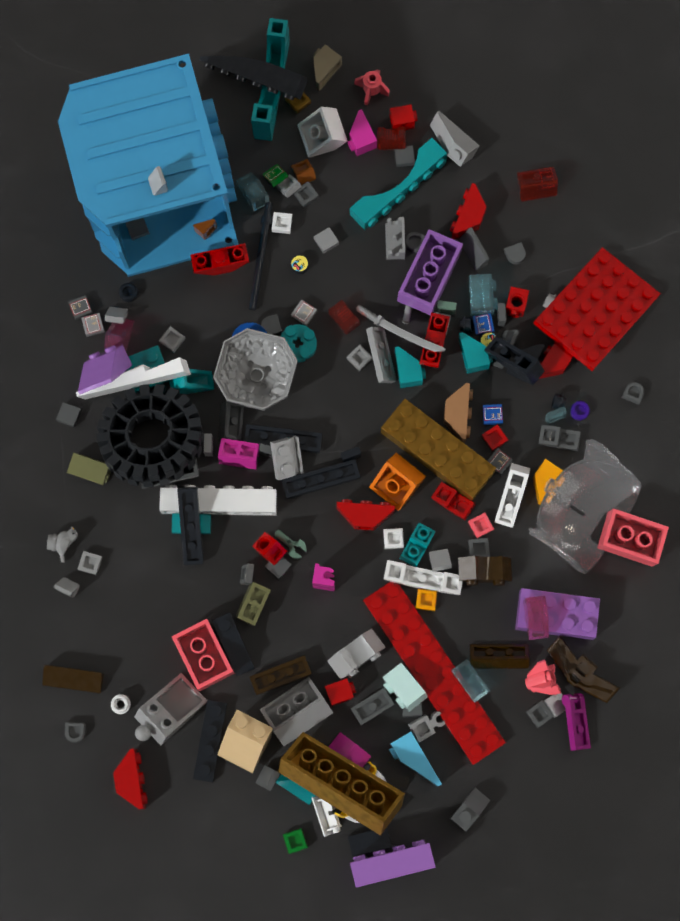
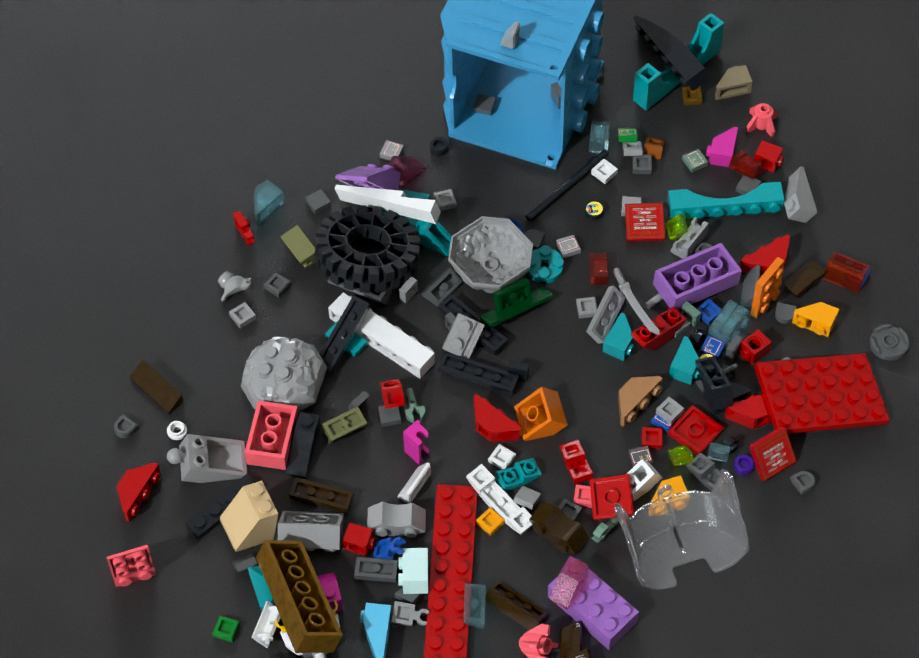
camera: 35 degrees right, 20 degrees down
(25, 482) = (242, 224): none -> red plate
(26, 445) = (266, 200): none -> clear light blue slope
(67, 587) = (209, 319): light grey slope -> none
(80, 307) = (392, 133): dark grey tile -> none
(96, 515) = (277, 284): none -> dark grey tile
(116, 315) = (415, 154): light grey tile -> none
(169, 594) = (283, 373): none -> light grey rock
(180, 848) = (131, 566): none -> coral slope
(205, 228) = (538, 135): dark orange slope -> none
(220, 260) = (529, 165): red slope -> none
(238, 453) = (426, 311): dark pink hinge -> none
(304, 396) = (514, 300): none -> dark green bracket
(322, 131) = (693, 126): white slope -> none
(343, 611) = (415, 483): none -> white slope
(345, 161) = (695, 160): none -> sand green tile
(349, 248) = (644, 222): none -> red tile
(369, 684) = (387, 547): none -> blue plate
(377, 235) = (676, 227): none -> clear neon green plate
(438, 450) = (594, 413): pearl gold brick -> none
(458, 294) = (709, 311): none -> blue plate
(493, 406) = (669, 410): none -> light grey tile
(496, 247) = (767, 288): none -> orange plate
(507, 515) = (607, 492): none -> red plate
(510, 212) = (805, 277): none -> dark brown slope
(519, 545) = (602, 530): none -> sand green bar
(522, 407) = (695, 430): none -> red tile
(529, 439) = (680, 455): none -> clear neon green plate
(546, 241) = (816, 317): none -> light orange slope
(599, 388) = (772, 453): none -> red tile
(611, 223) = (889, 342): none -> dark grey tile
(633, 537) = (708, 586): coral brick -> none

